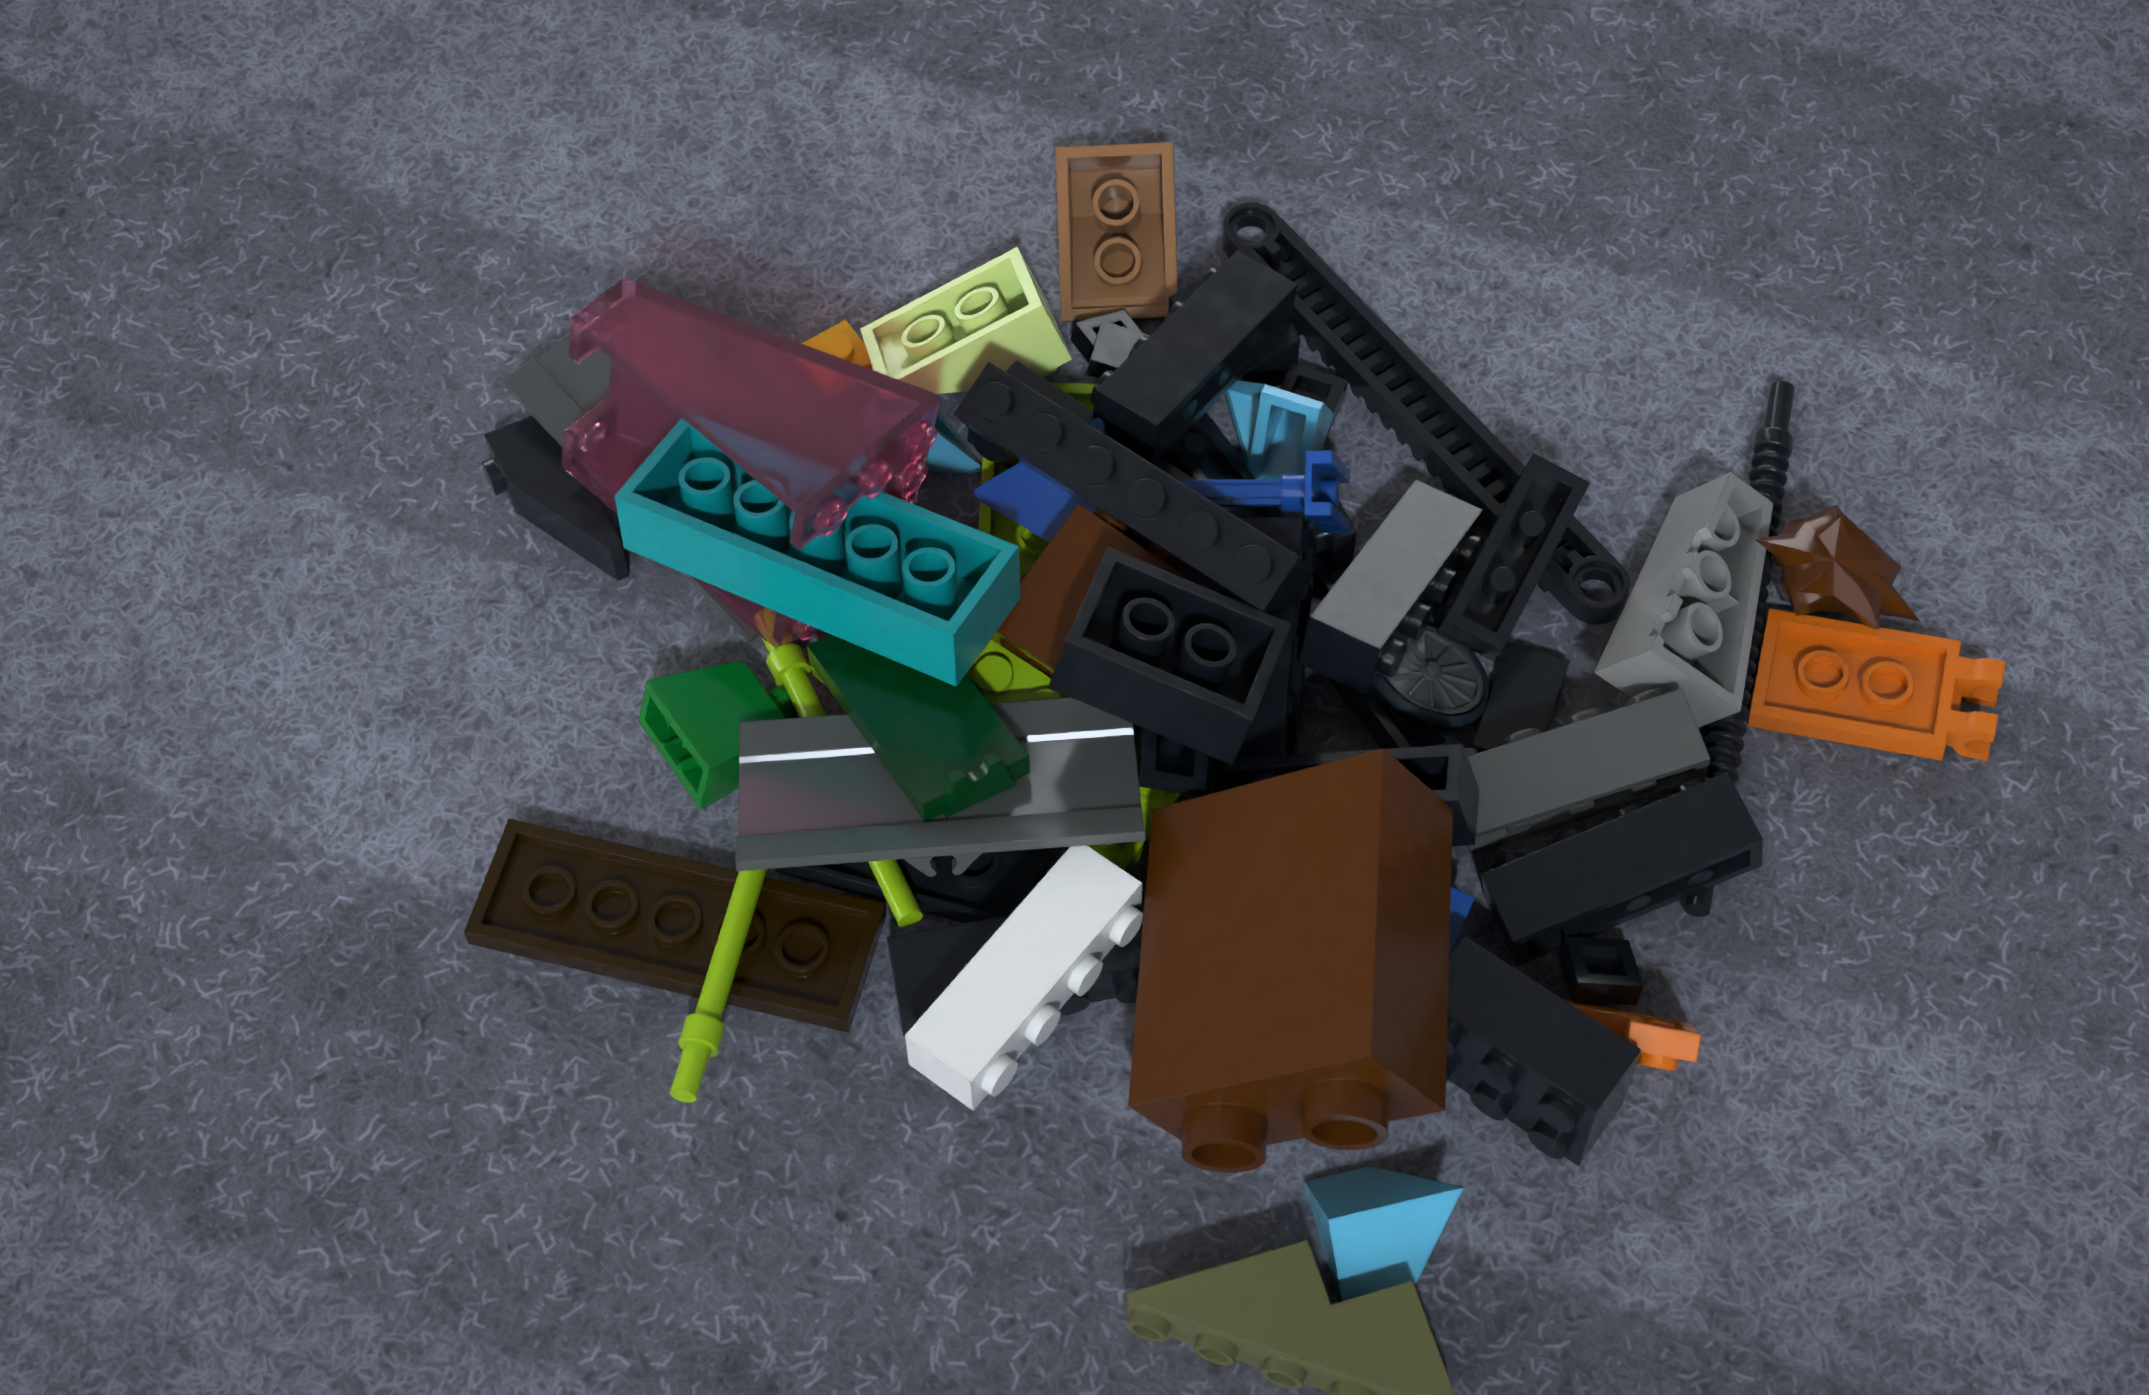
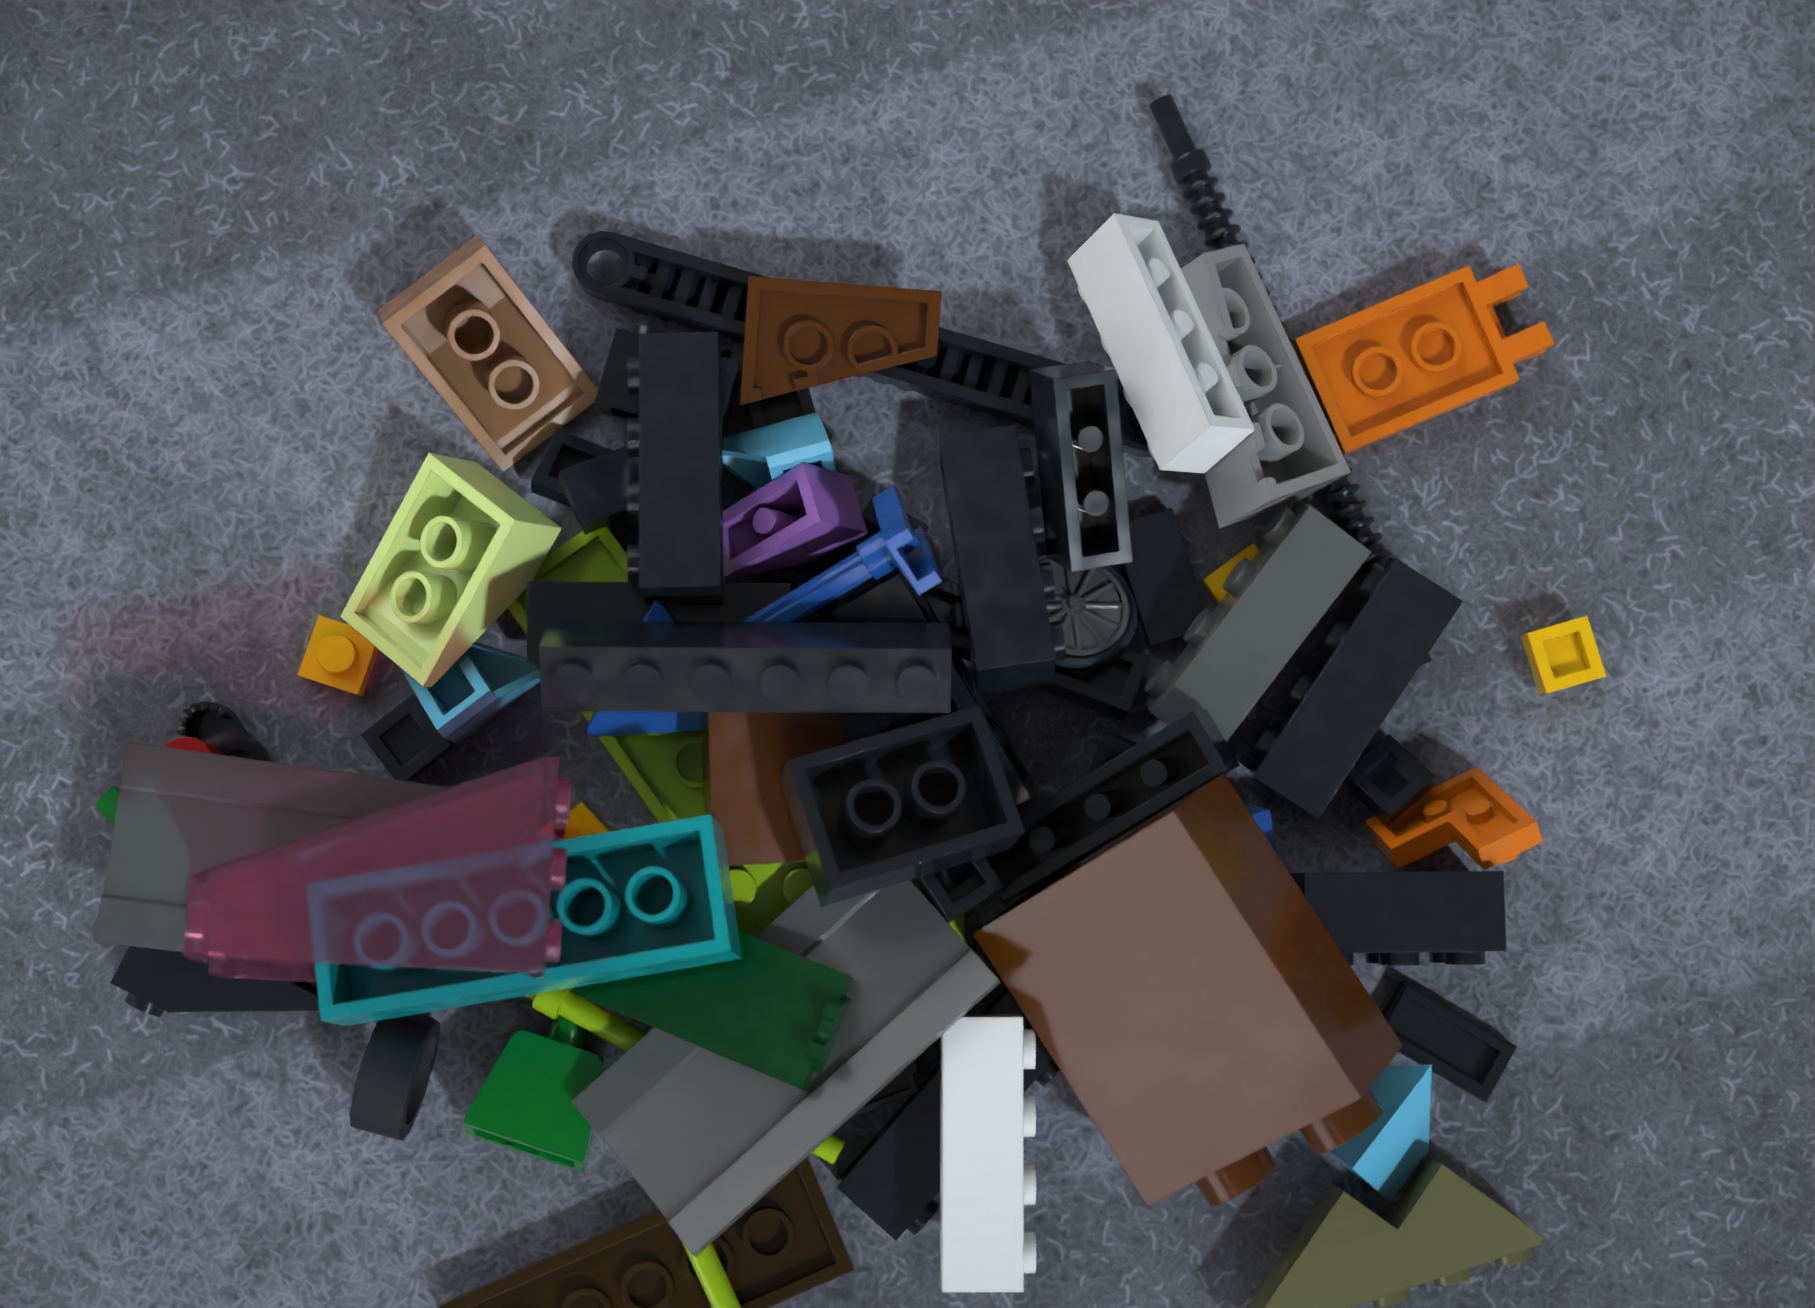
camera: 50 degrees left, 25 degrees up
(626, 630) = (394, 1075): none -> black tyre
(1245, 447) = (791, 522): none -> medium lavender slope
(1387, 360) = (830, 331): none -> reddish brown wing
(1495, 1216) = (1448, 1040): none -> black tile
(1644, 518) = (1159, 345): none -> white brick
(1832, 982) = (1563, 655): none -> yellow plate
(1835, 568) = (1330, 271): reddish brown hair -> none

